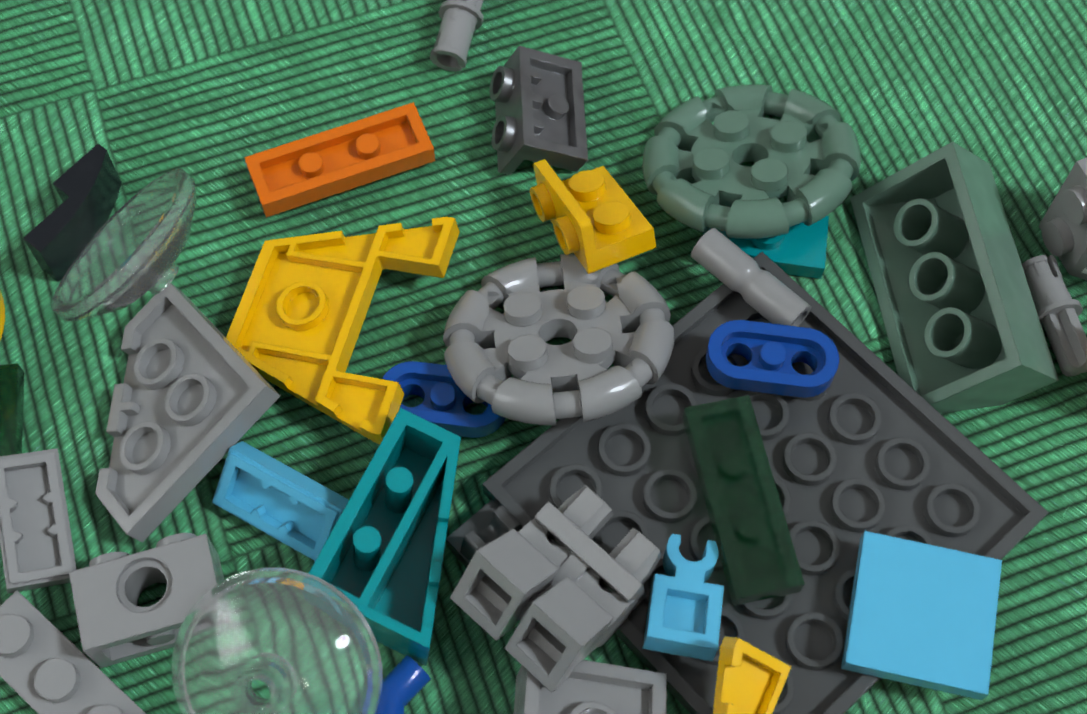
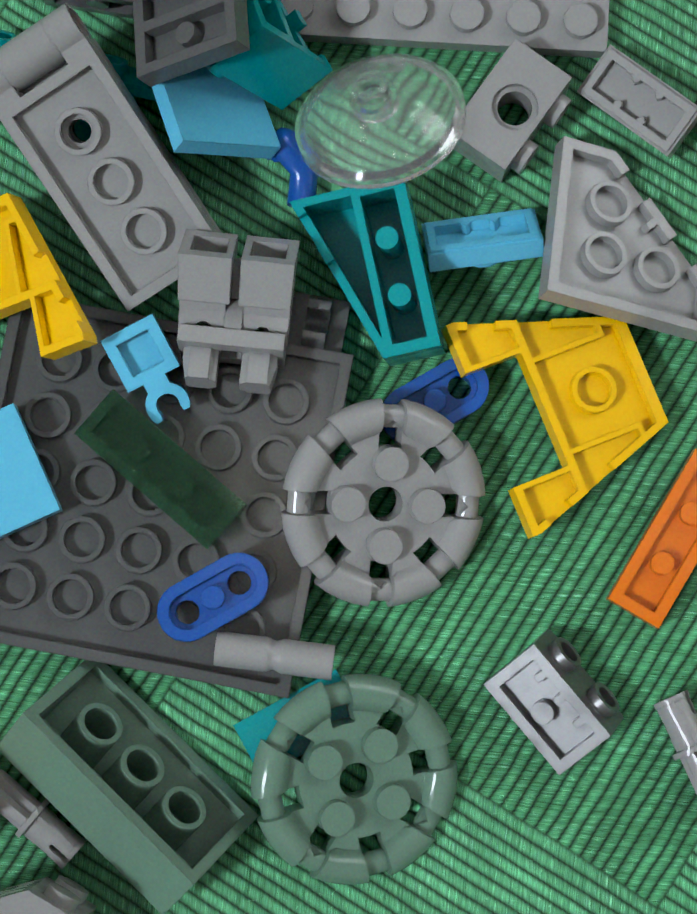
camera: 150 degrees right, 20 degrees up
(591, 216) = (438, 631): yellow bracket -> none

